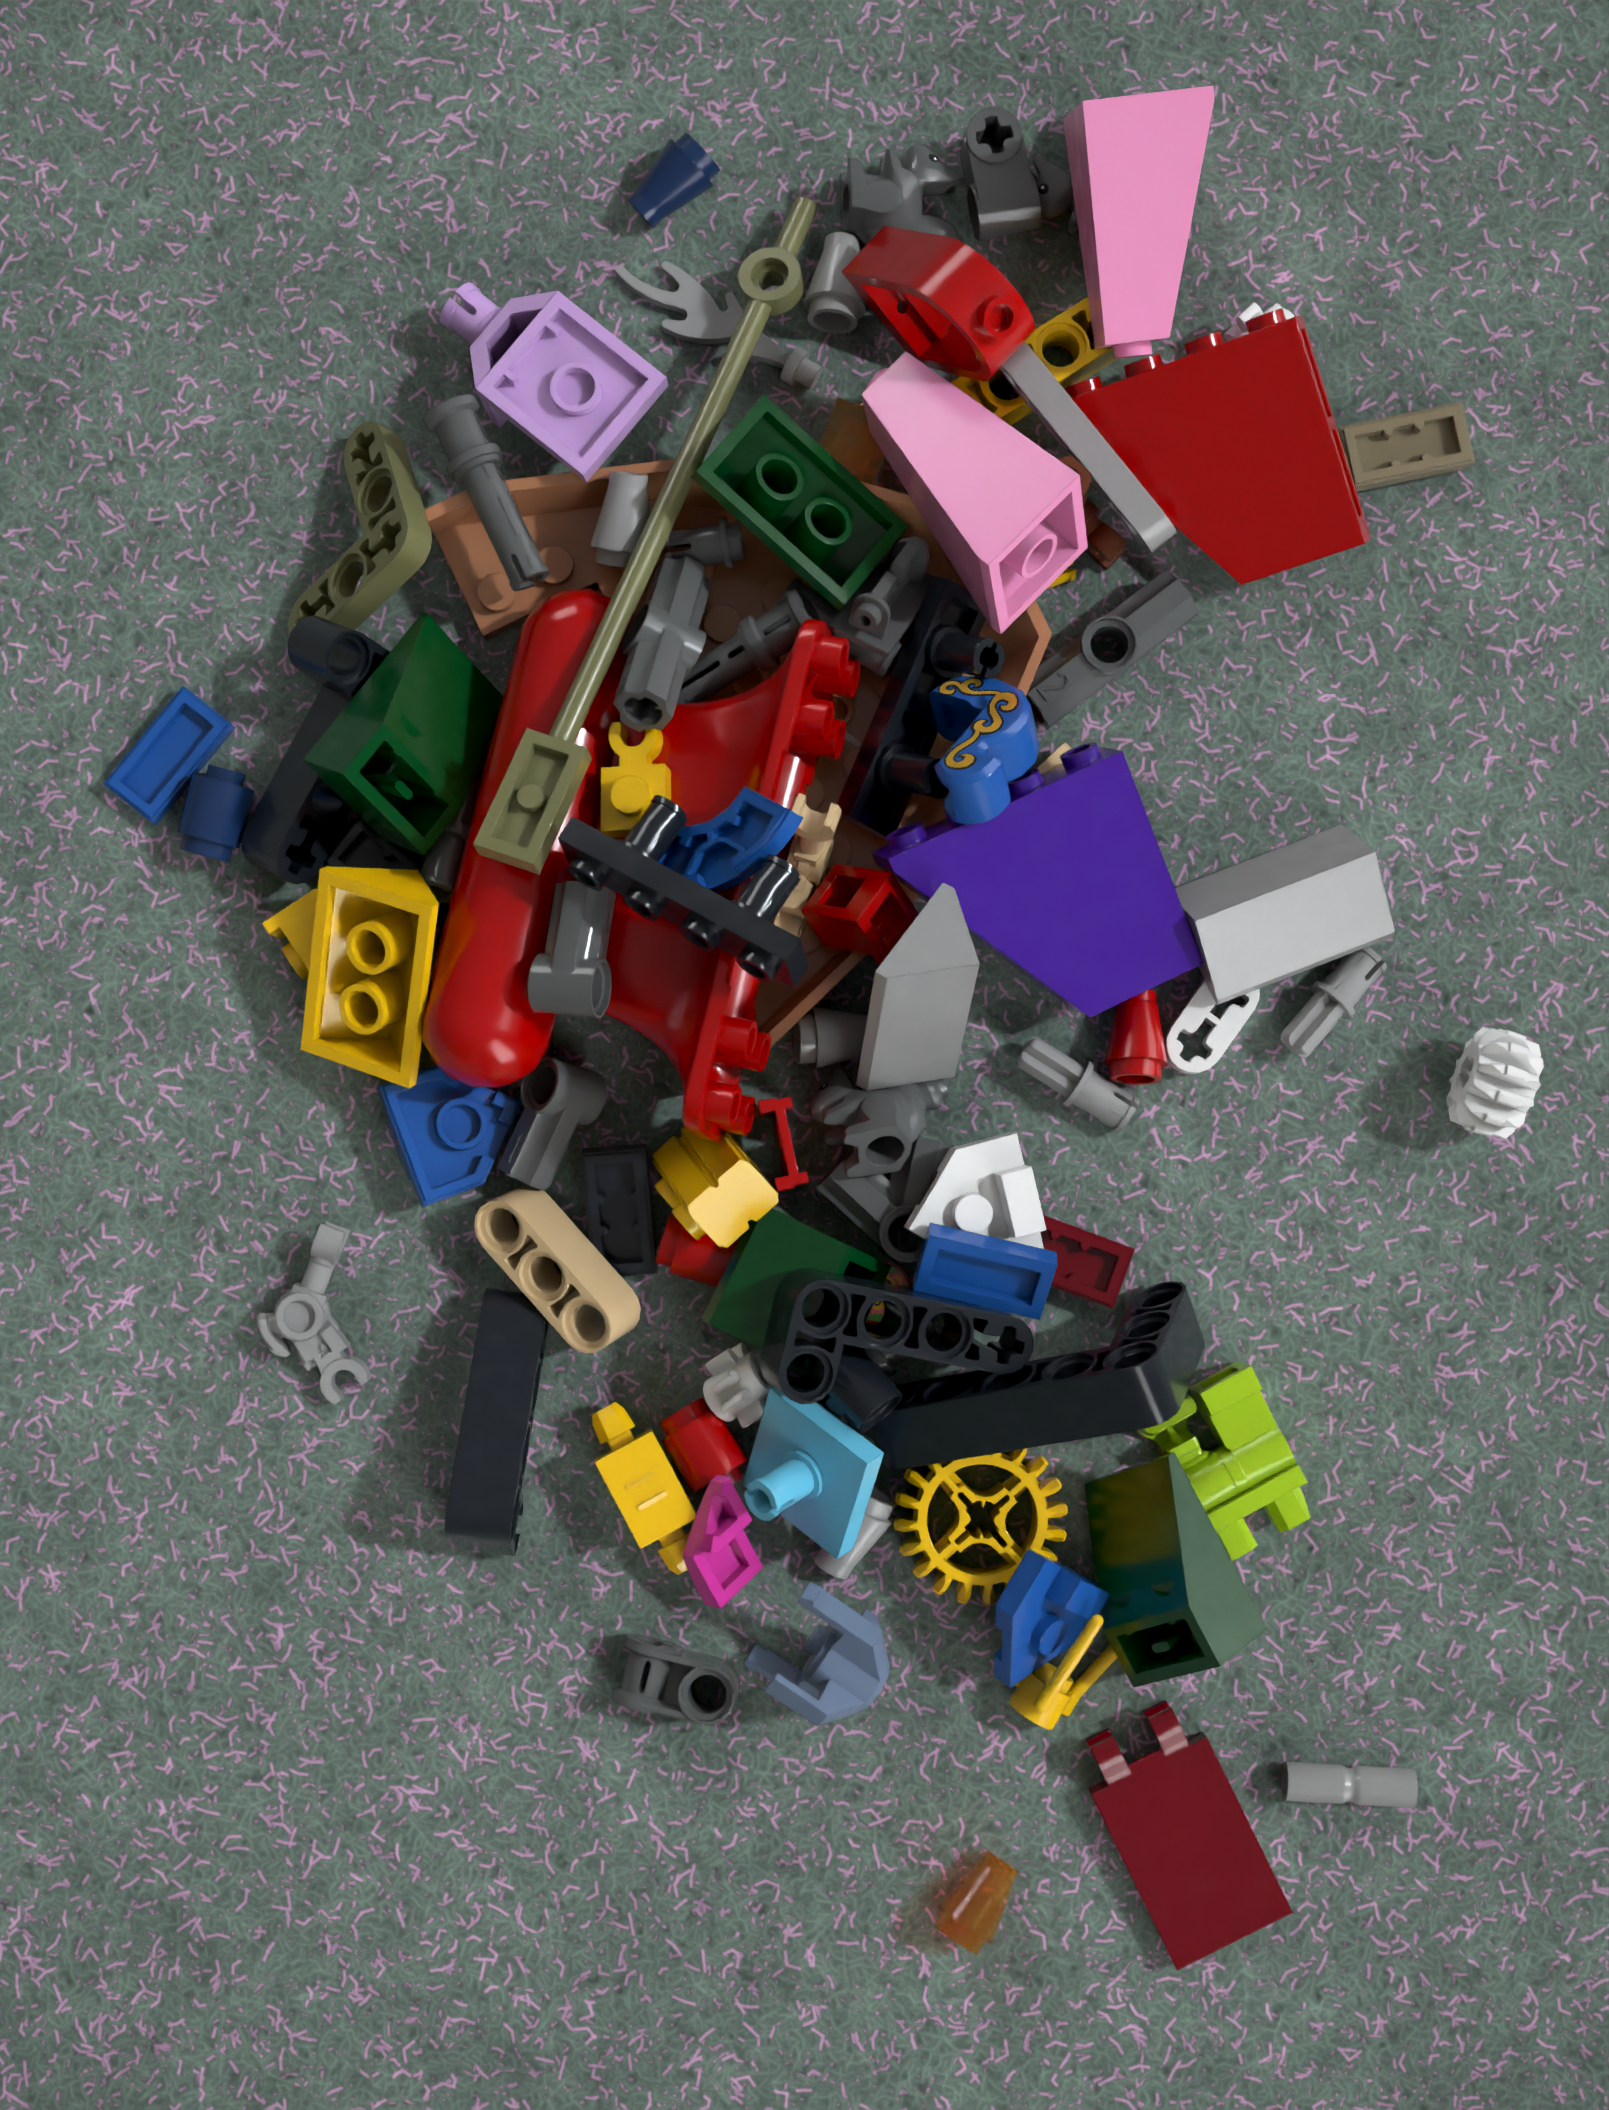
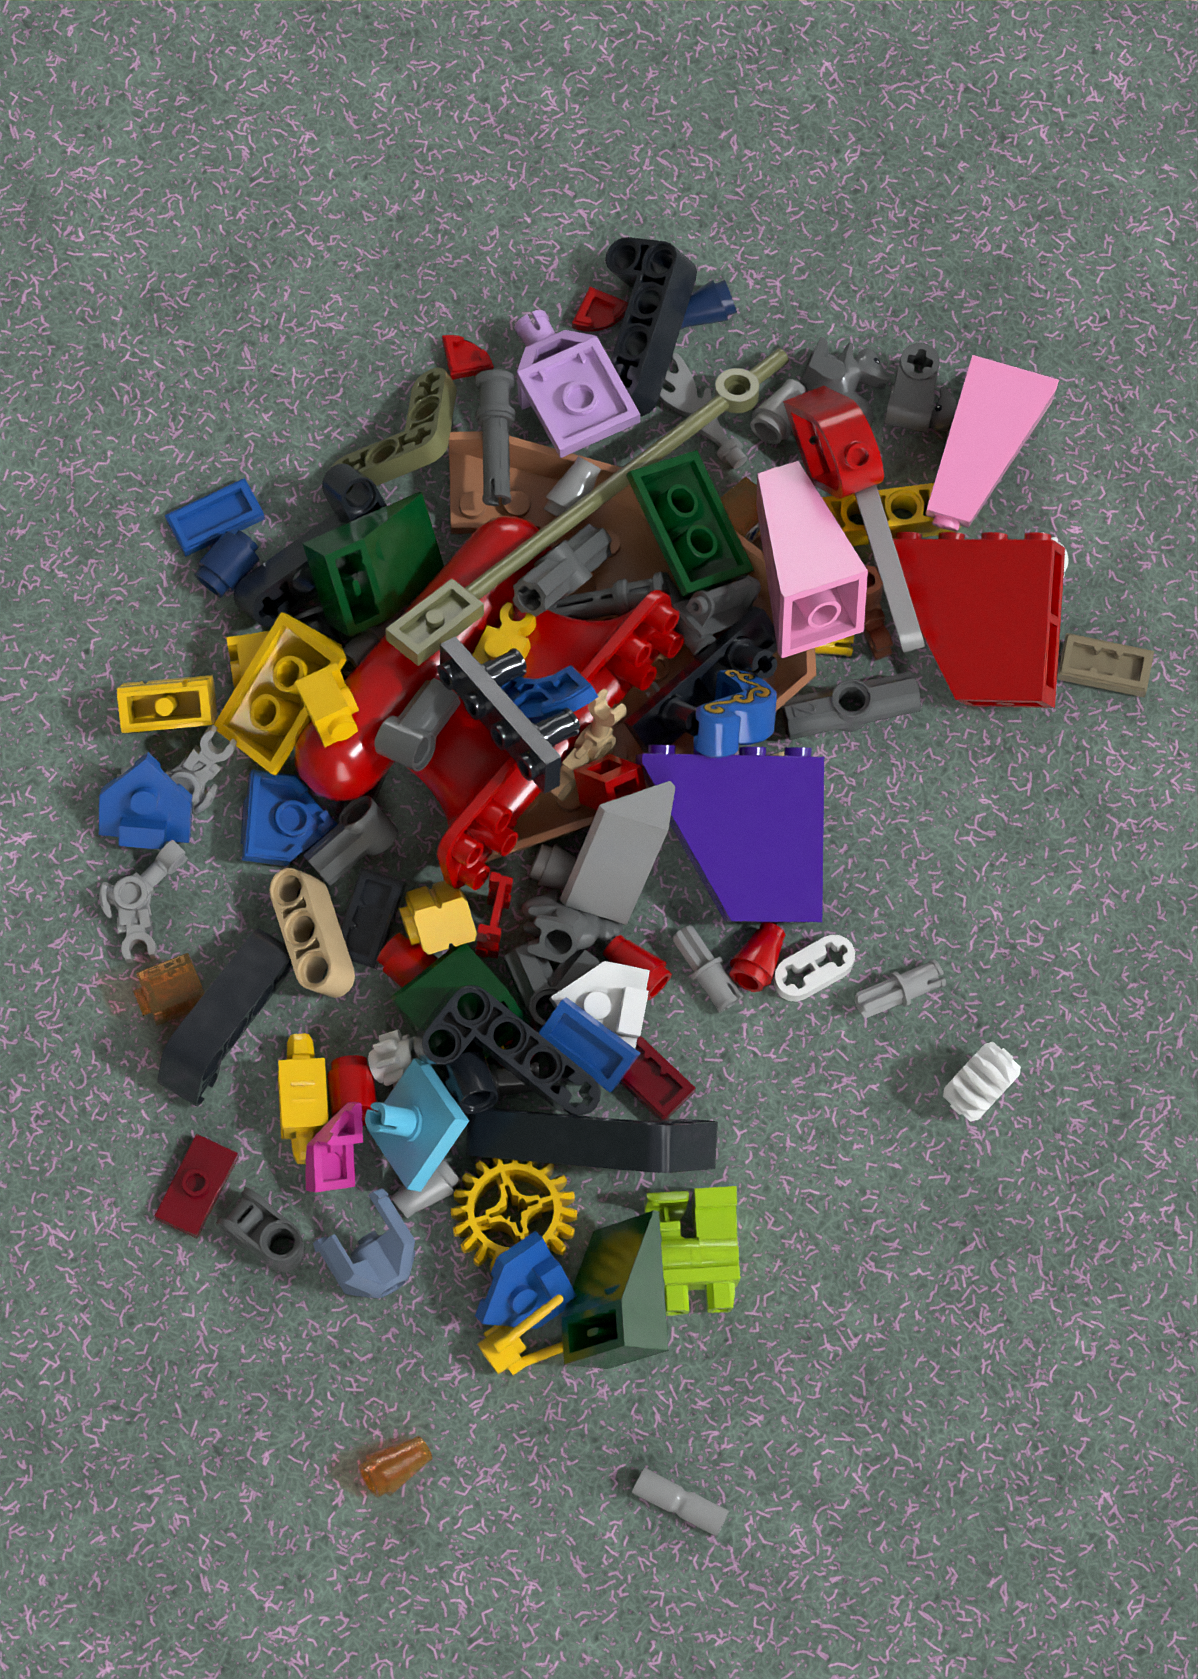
camera: 25 degrees right, 15 degrees down
(227, 1046) = (167, 704): none -> yellow brick
(266, 1197) = (145, 807): none -> blue plate
(298, 1138) = (199, 768): none -> light grey piece
(393, 390) = (464, 357): none -> red tile
(410, 1422) = (168, 989): none -> clear orange brick
(445, 981) = (328, 704): none -> yellow brick
(538, 247) = (599, 311): none -> red tile
(563, 1655) = (196, 1186): none -> dark red plate
(605, 246) = (652, 322): none -> black beam
(709, 543) = (622, 529): dark grey pin -> none
(985, 1116) = (630, 954): none -> red cone
(1185, 1840) = (553, 1489): dark red tile -> none
(1286, 912) = (891, 919): slope -> none

